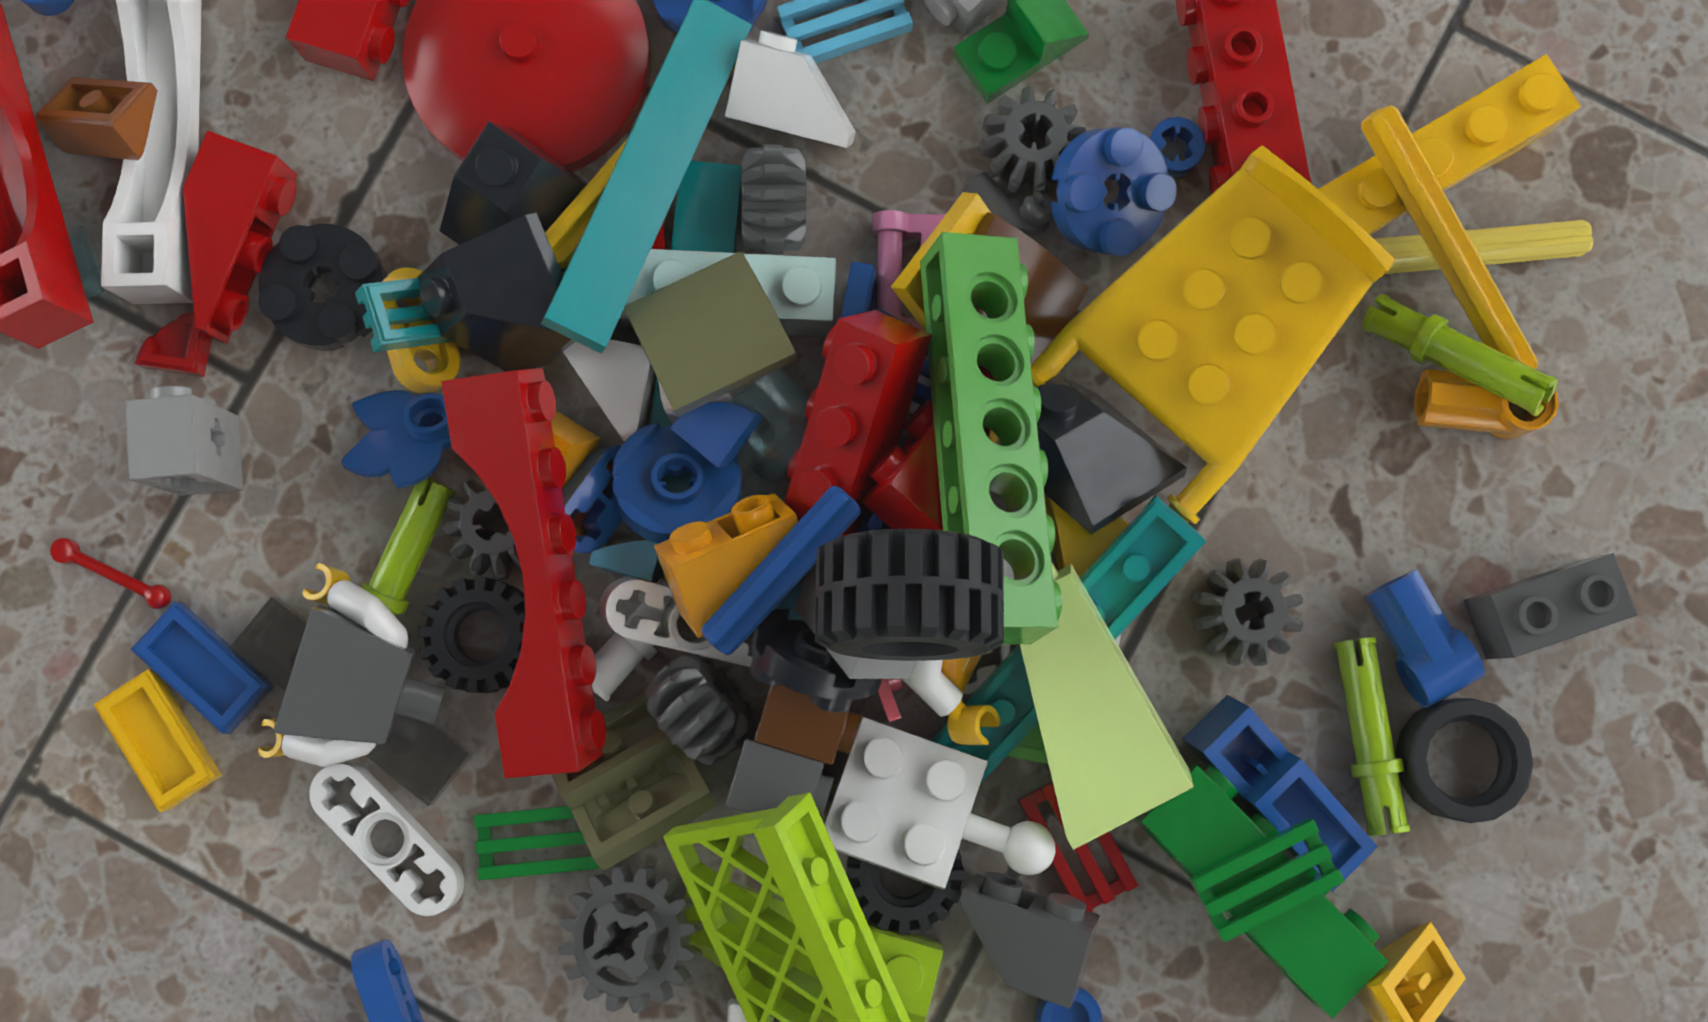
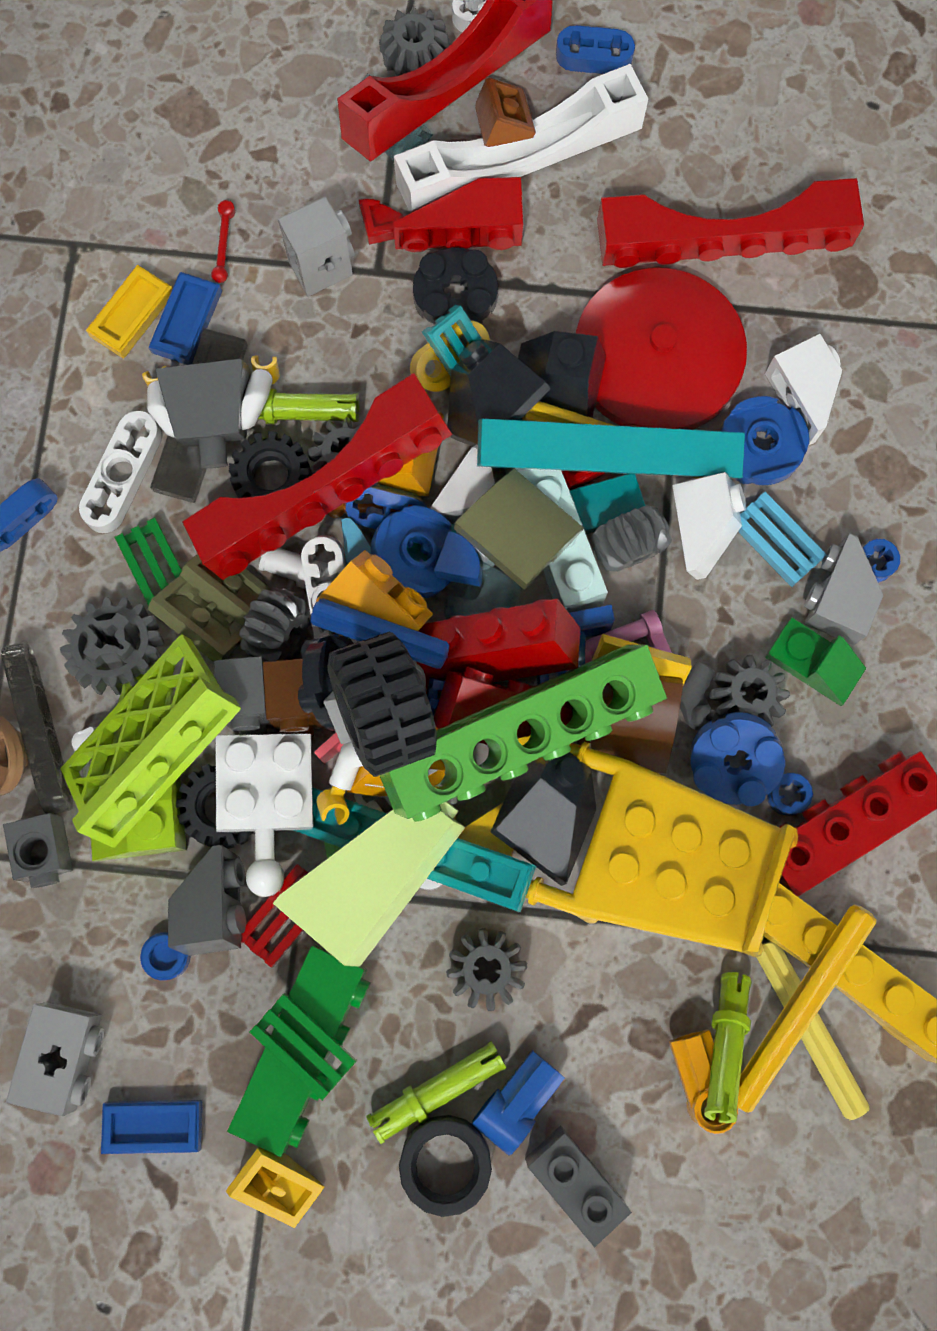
camera: 65 degrees right, 5 degrees down
(403, 437) = (373, 373): blue plate -> none
(1276, 781) = (373, 1040): blue slope -> none

